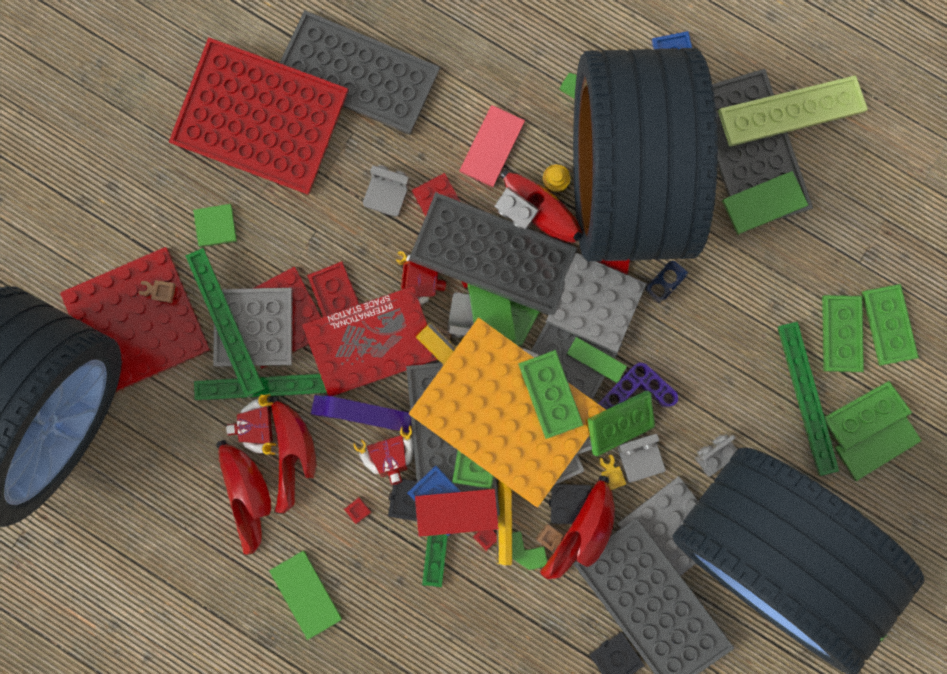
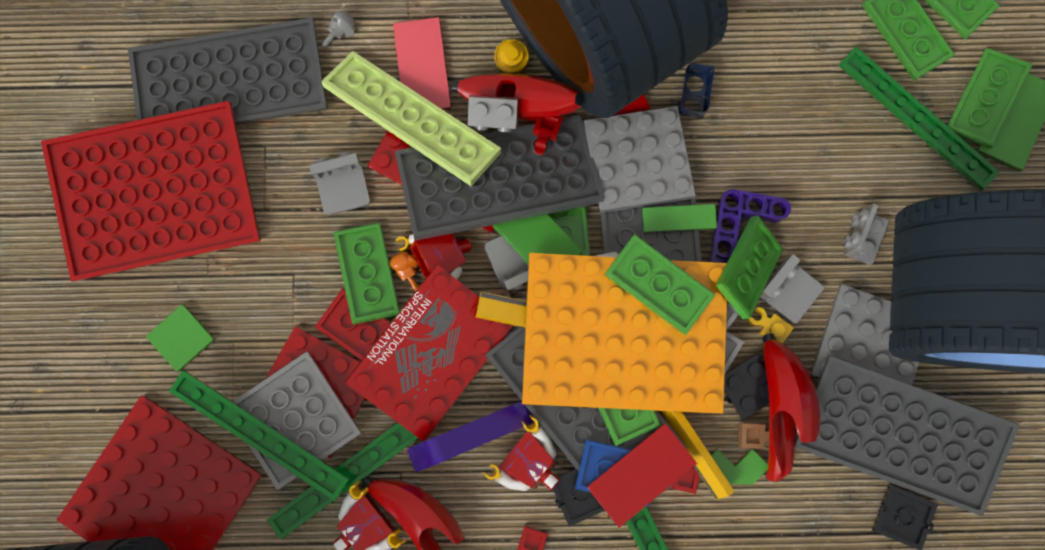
camera: 30 degrees left, 0 degrees up
(160, 291) = (166, 447): medium nougat plate -> none
(364, 261) = (366, 273): none -> bright green tile
(392, 273) = (405, 266): none -> orange piece
(455, 83) = (340, 25): none -> light grey piece
(461, 177) = (412, 118): none -> yellowish green plate
(544, 242) = (546, 129): none -> red plate

